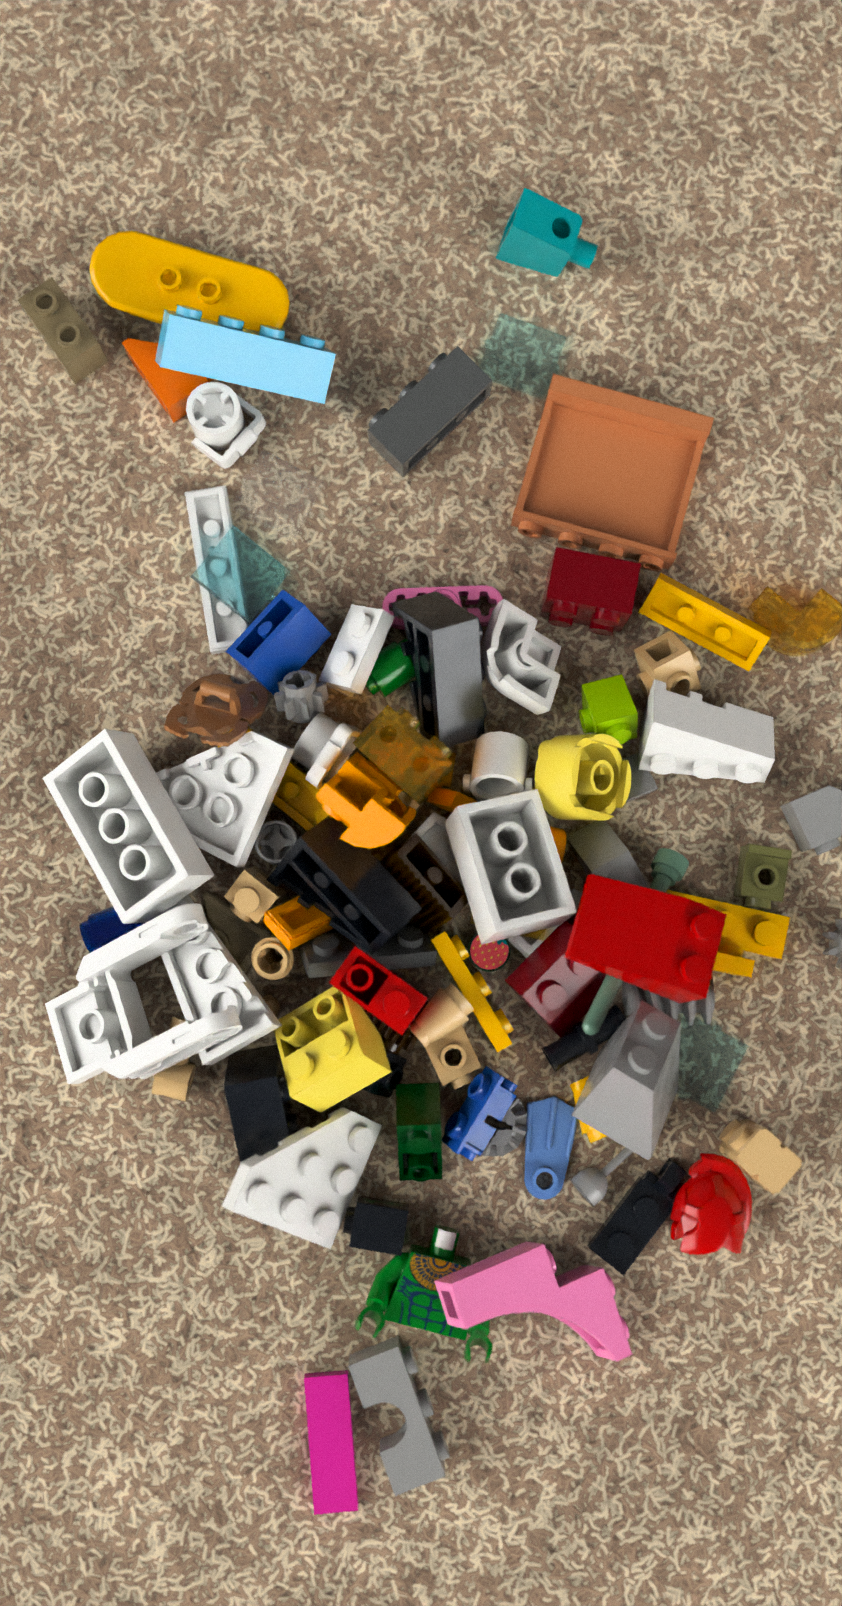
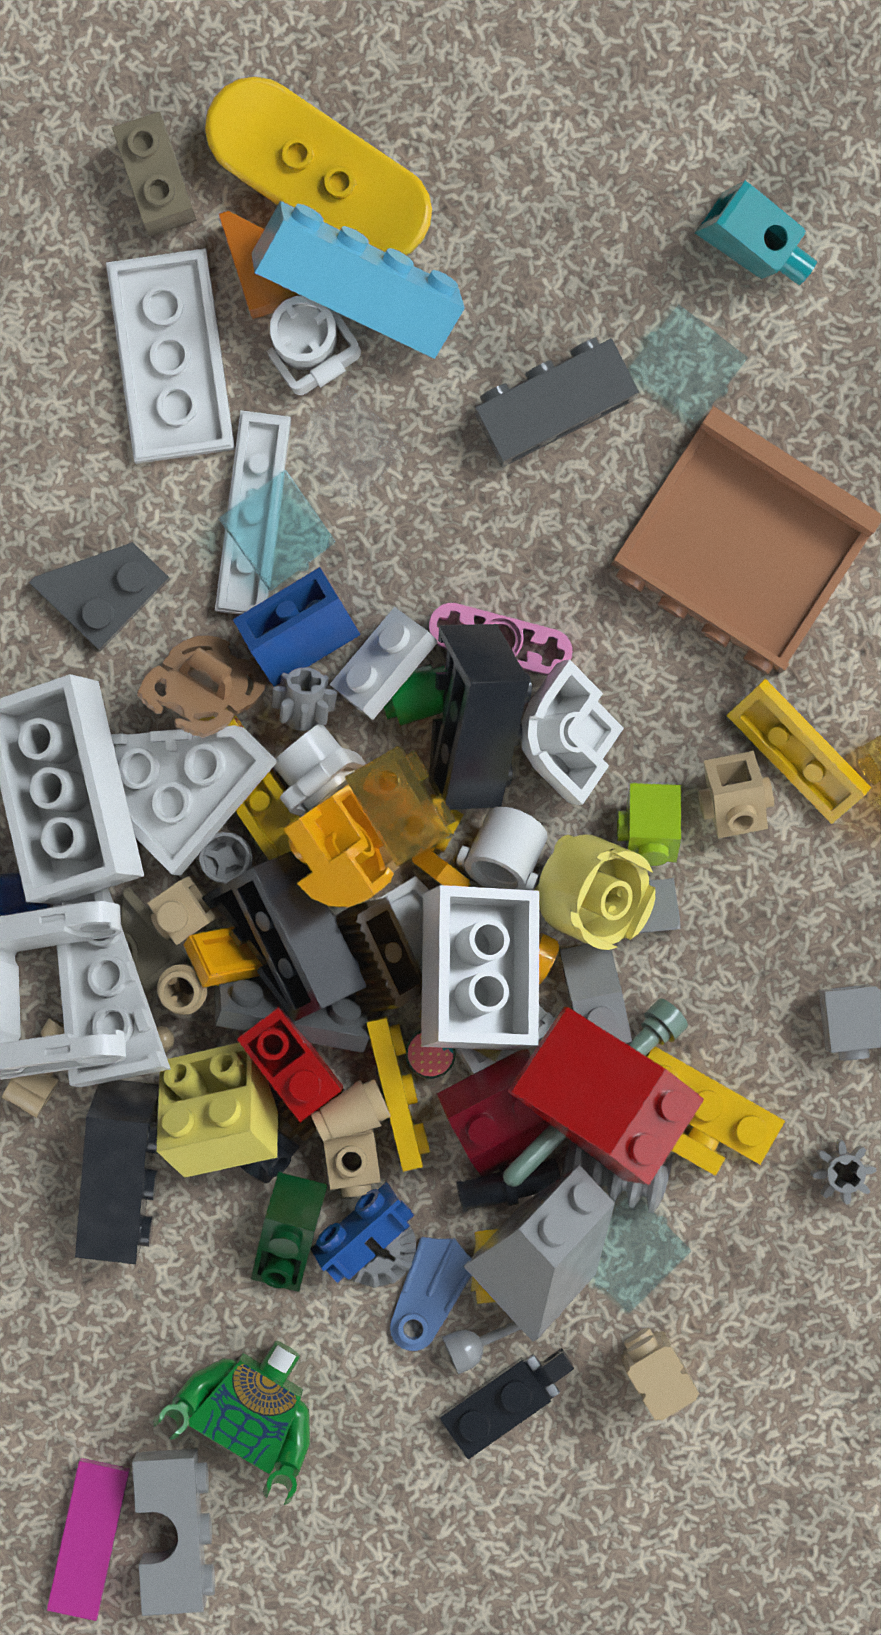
camera: 15 degrees right, 5 degrees up
(117, 468) = (170, 356): none -> white tile
(117, 664) = (102, 590): none -> dark grey wing
(307, 1178) = (150, 1245): white plate -> none
(377, 1225) = (210, 1320): black brick -> none
(526, 1282) = (357, 1432): bright pink arch -> none
(589, 591) = (672, 678): dark red brick -> none
(703, 739) = (750, 890): white wedge -> none
(712, 1207) = (591, 1415): red helmet -> none
(751, 861) = (762, 1045): olive brick -> none

